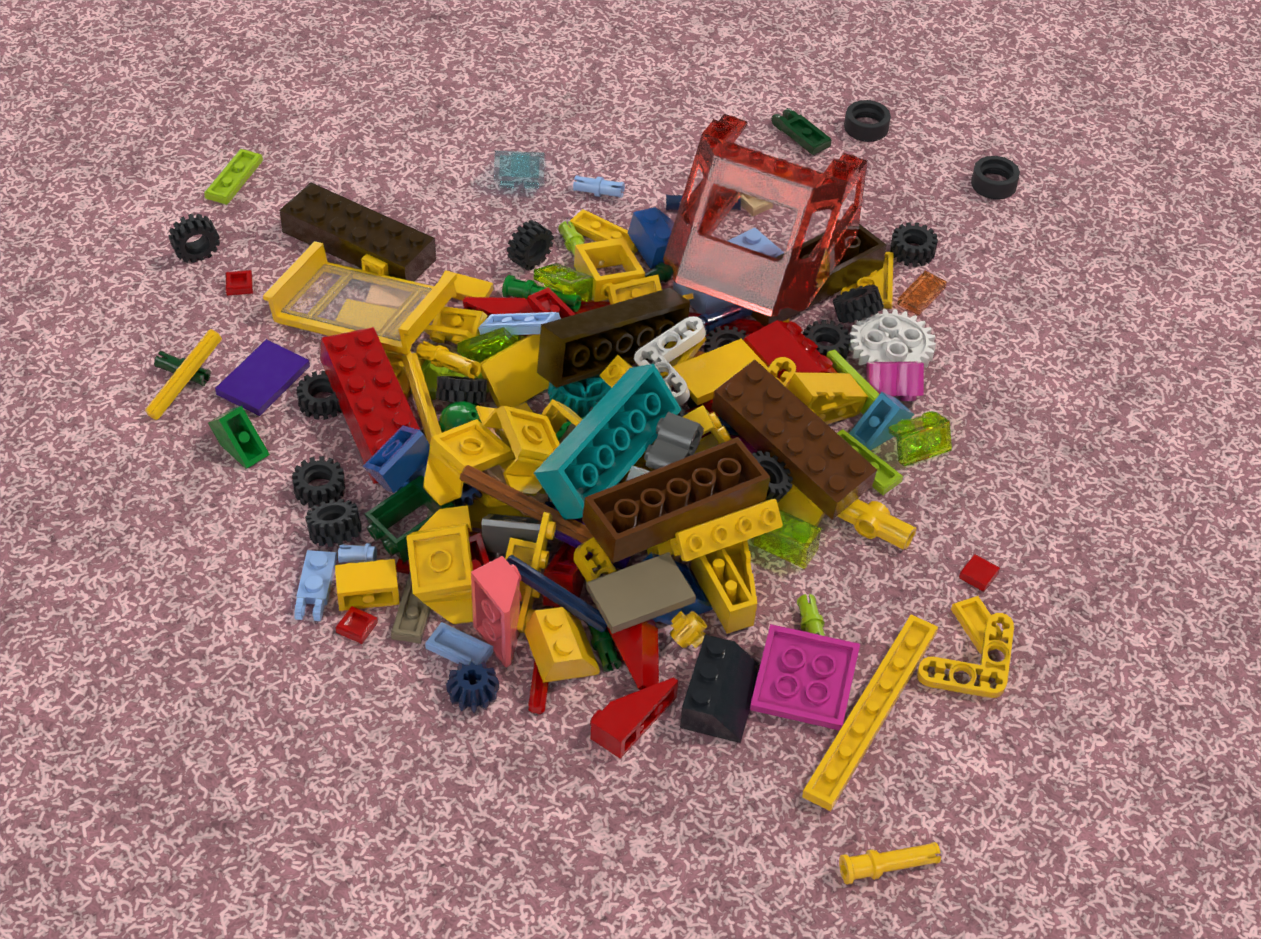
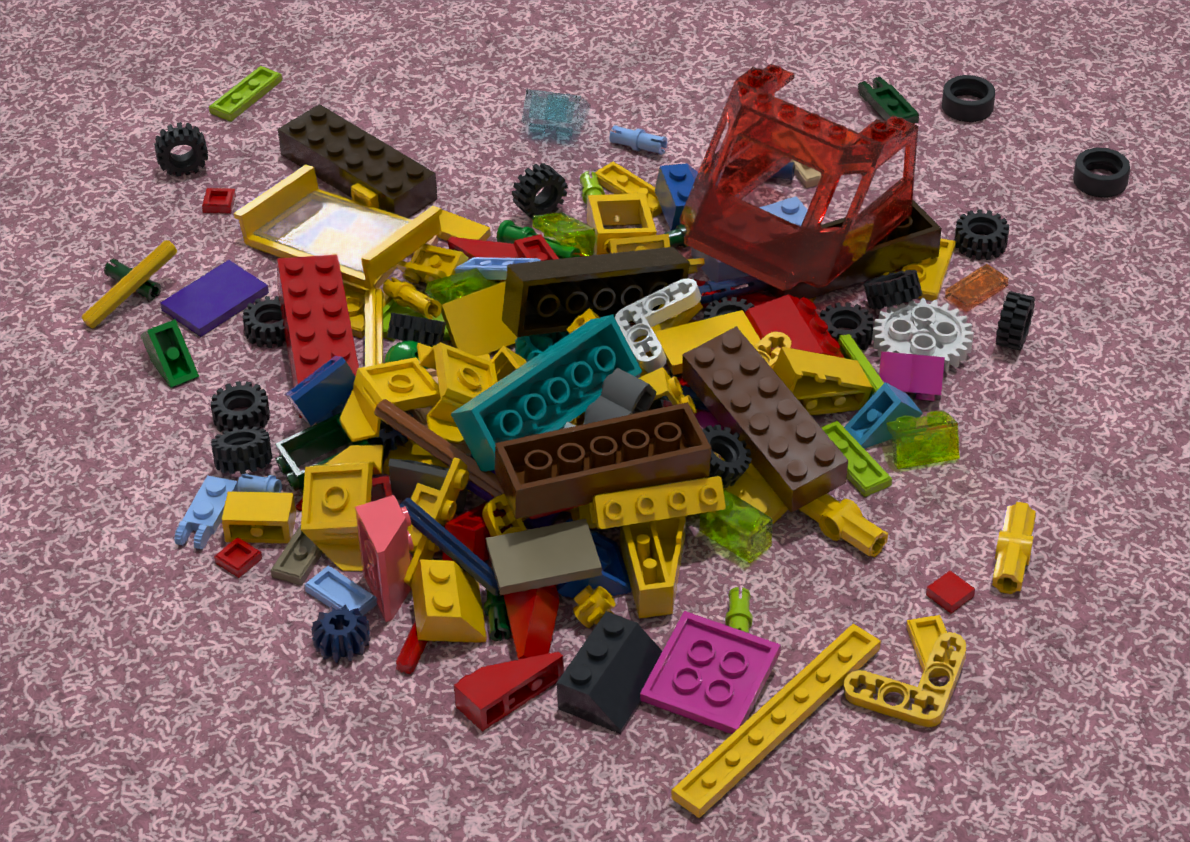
camera: 15 degrees right, 5 degrees down
(967, 321) = (1015, 320): none -> black tyre
(1021, 527) = (1014, 548): none -> yellow piece

